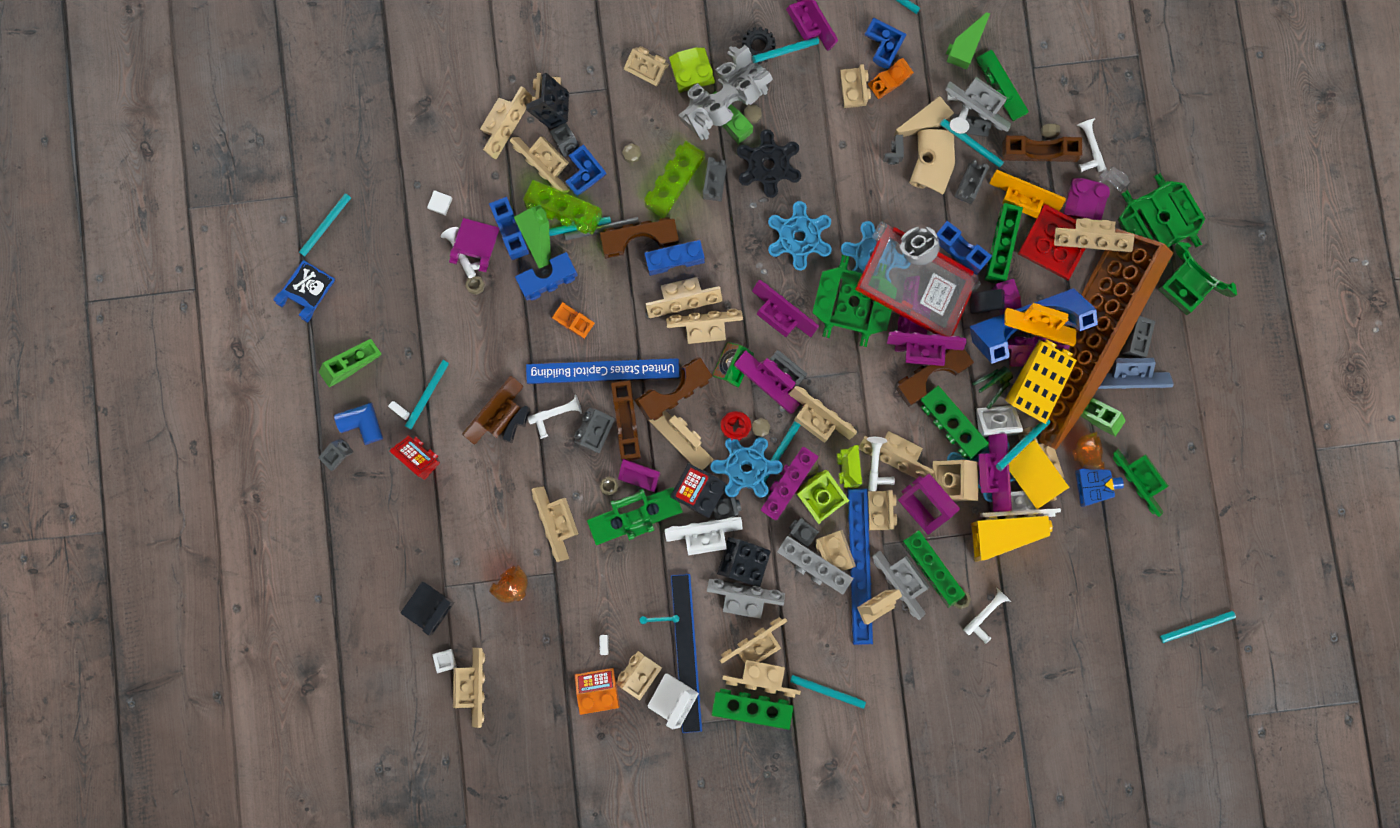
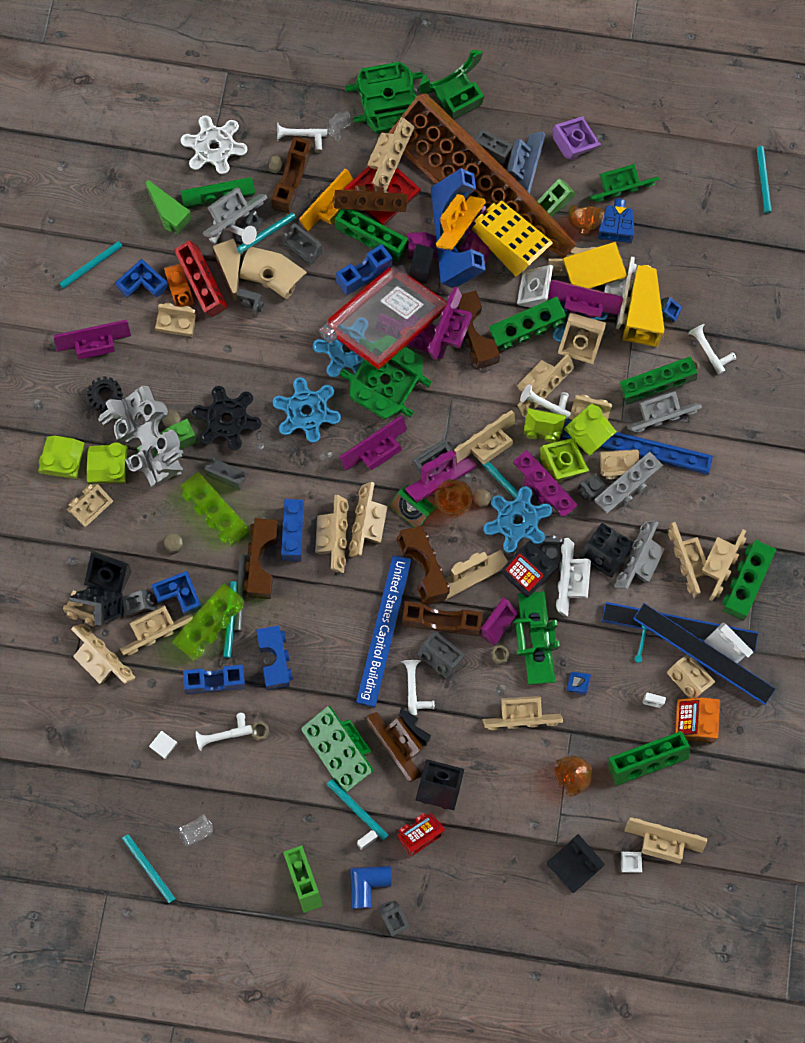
camera: 80 degrees left, 10 degrees down
(306, 288) = (210, 904): flag -> none
(367, 255) = (196, 831): none -> clear bracket
(468, 462) = (440, 784): none -> black slope
(476, 241) = (216, 716): magenta flag -> none
(478, 362) = (339, 748): none -> bracket
(535, 231) = (221, 652): bright green slope -> none
(544, 653) = (648, 758): none -> green brick
(573, 320) = (324, 645): orange slope -> none
(583, 102) = (107, 572): none -> black slope
(603, 568) = (578, 683): none -> blue slope
(662, 682) = (704, 653): none -> black tile
(686, 26) = (61, 457): none -> lime slope
(730, 419) = (482, 516): red gear -> none
(756, 402) = (453, 498): none -> clear orange cylinder
(784, 50) = (119, 370): teal bar -> none
(827, 691) = (747, 508): teal bar -> none
(861, 514) = (590, 429): none -> lime slope
(878, 605) = (678, 437): tan bracket -> none
(903, 95) = (201, 278): none -> red brick
(920, 245) = (355, 299): light grey cylinder -> none
(936, 495) = (590, 355): magenta window -> none
(1000, 377) = (495, 273): dark green plant -> none
(1018, 562) = (670, 309): none -> blue slope
(1021, 445) = (566, 271): teal bar -> none
(1037, 230) = (370, 199): none -> reddish brown bracket
(1059, 57) = (212, 134): none -> white plate
(1086, 199) = (350, 153): magenta slope -> none
(1178, 418) = (574, 138): none -> medium lavender slope

